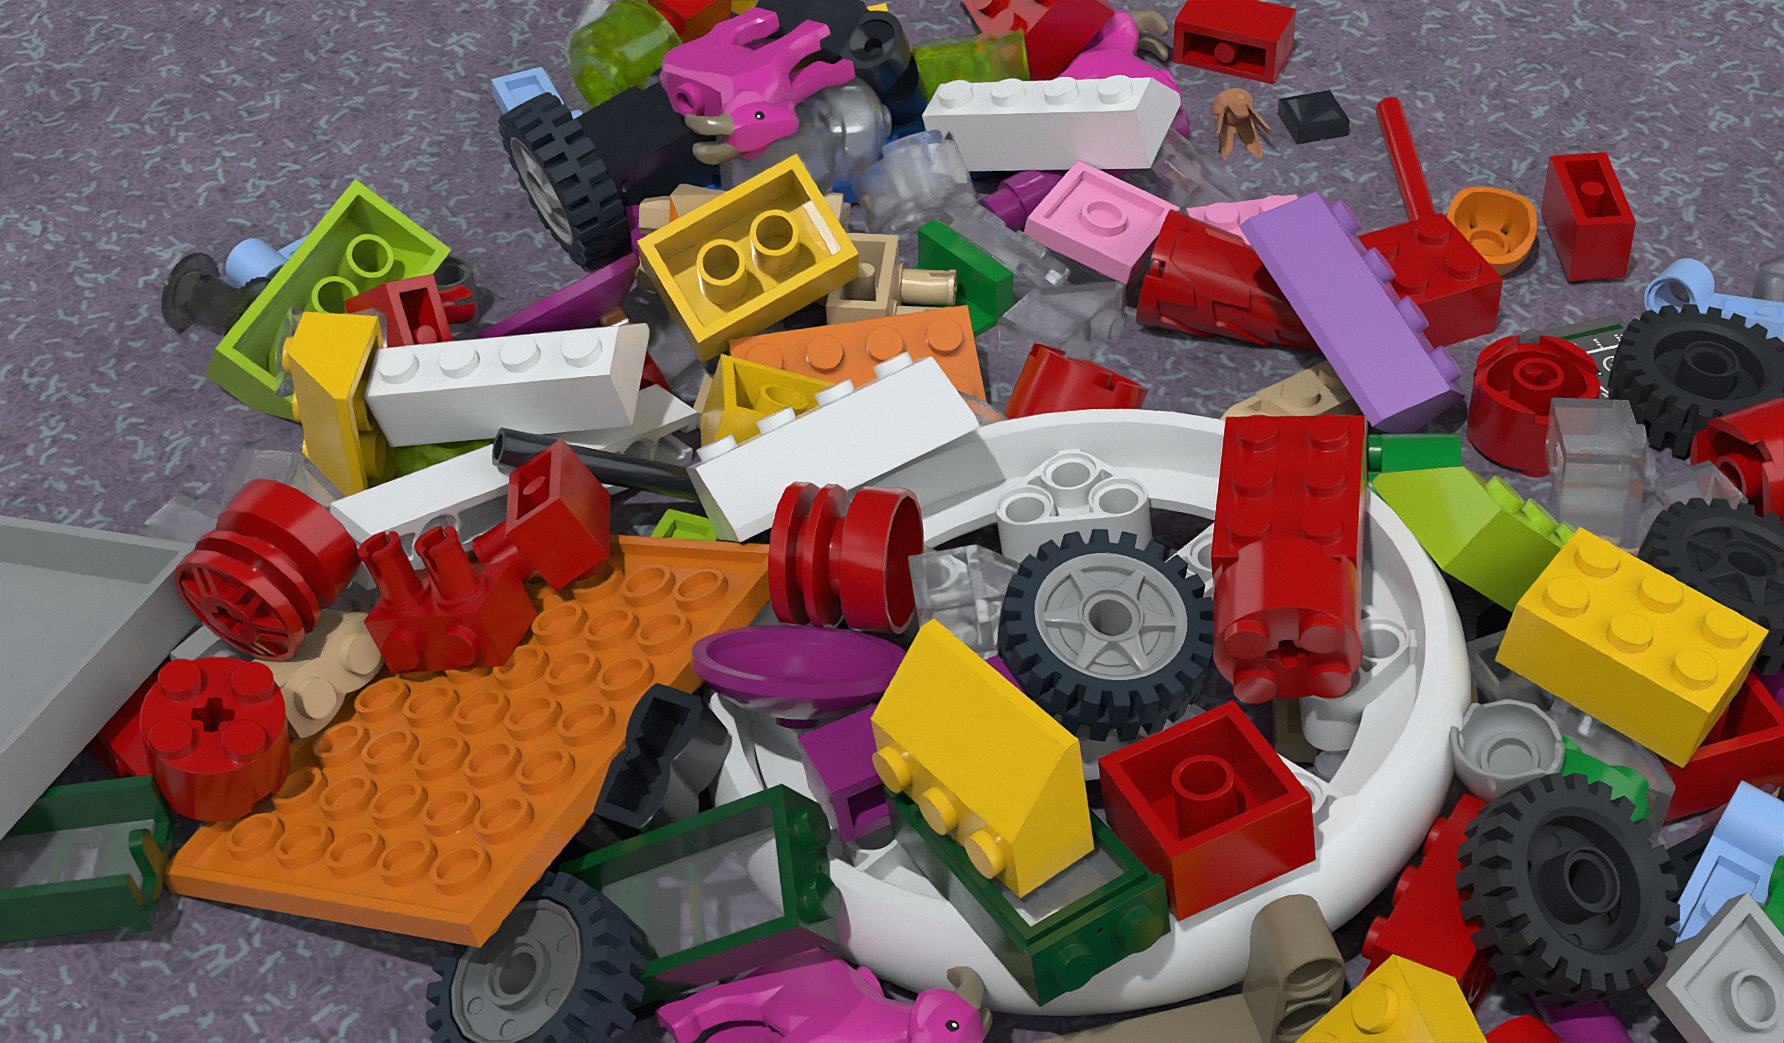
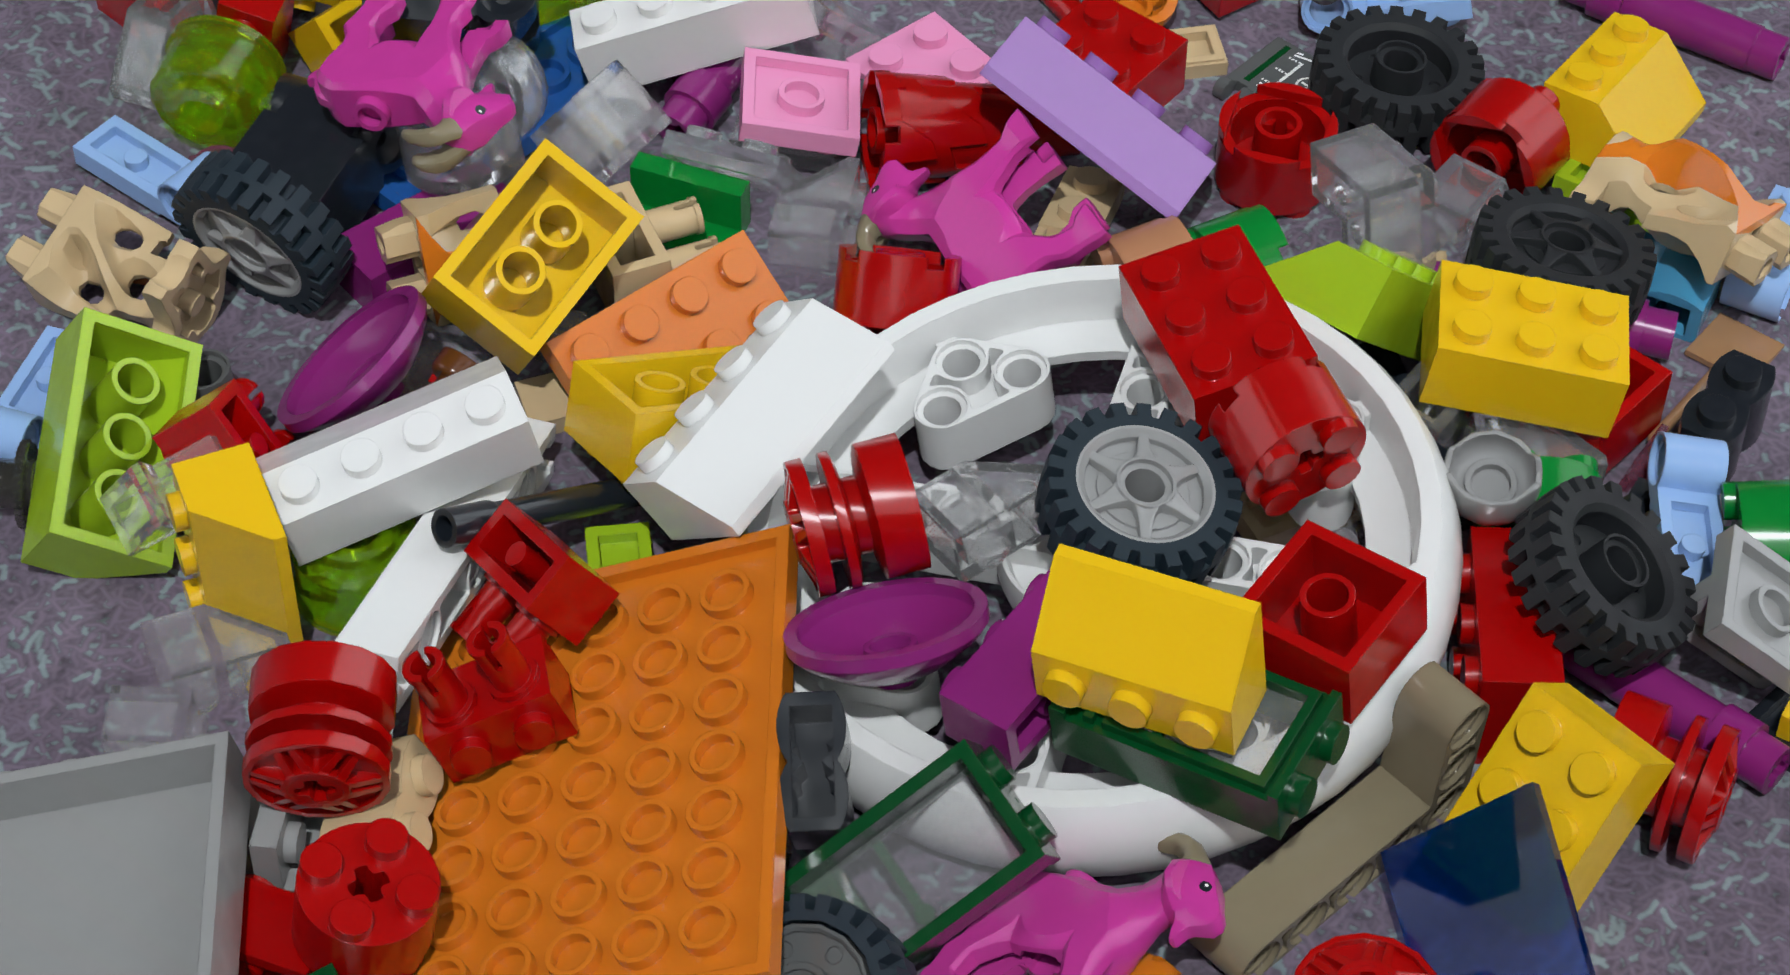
camera: 30 degrees left, 5 degrees up
(472, 208) = (179, 293): none -> tan hips
(1194, 357) = (978, 213): none -> dark pink animal
(1526, 302) = (1204, 52): none -> tan tile

